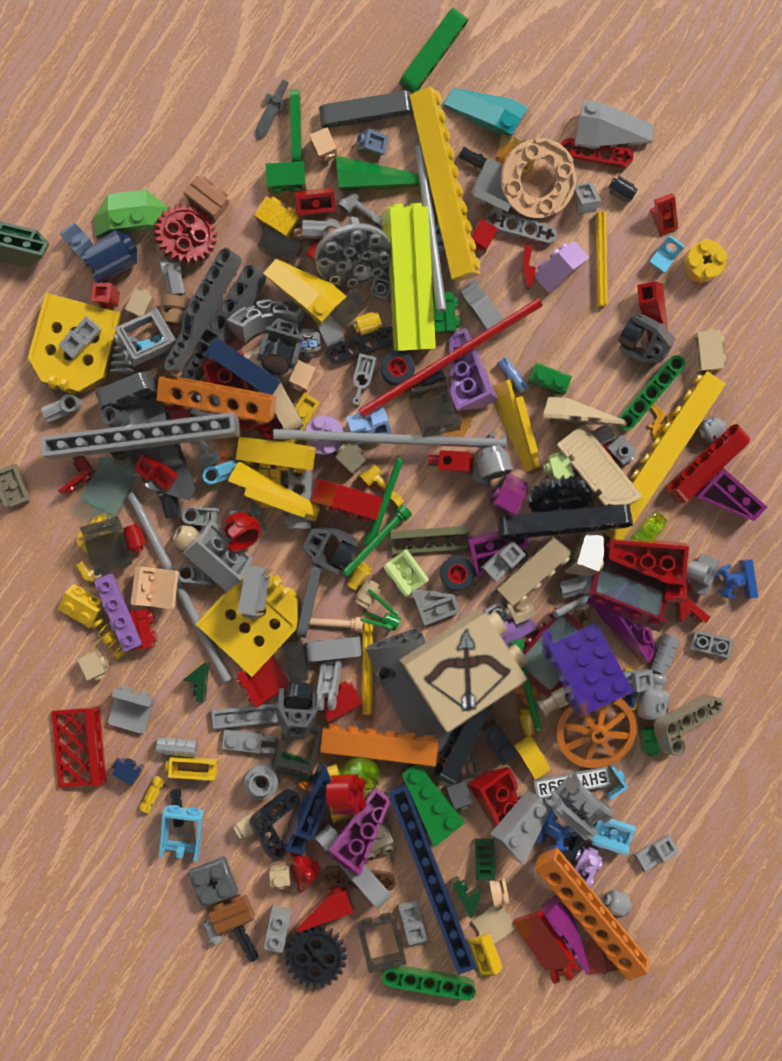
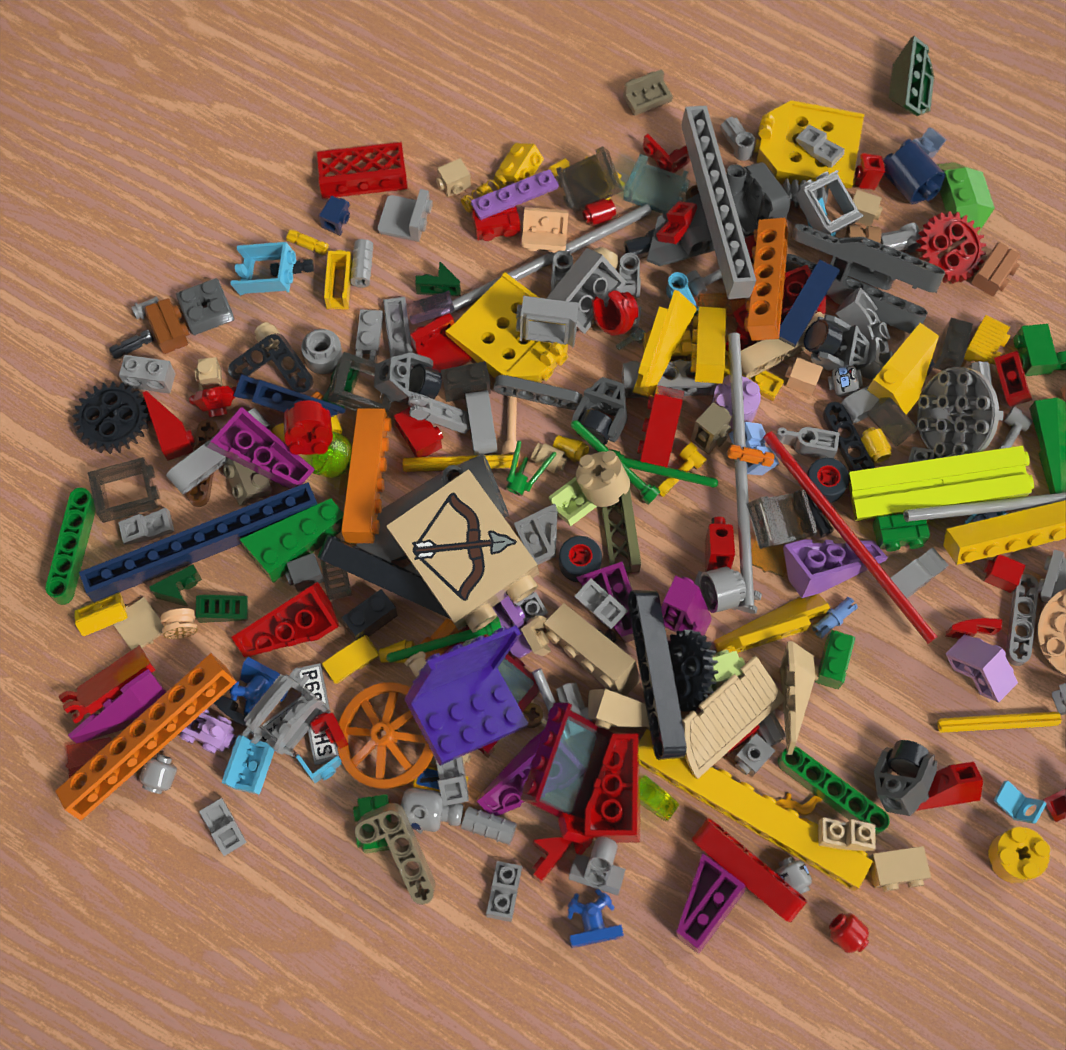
camera: 85 degrees right, 20 degrees down
(226, 689) = (430, 307): none -> tile
(384, 430) = (750, 455): none -> orange axle
(396, 553) = (602, 478): none -> tan brick
(521, 826) = (262, 643): light grey wedge -> none
(590, 770) = (334, 732): none -> red bracket
(688, 388) = (847, 836): none -> tan slope
(754, 394) = (849, 933): none -> red head

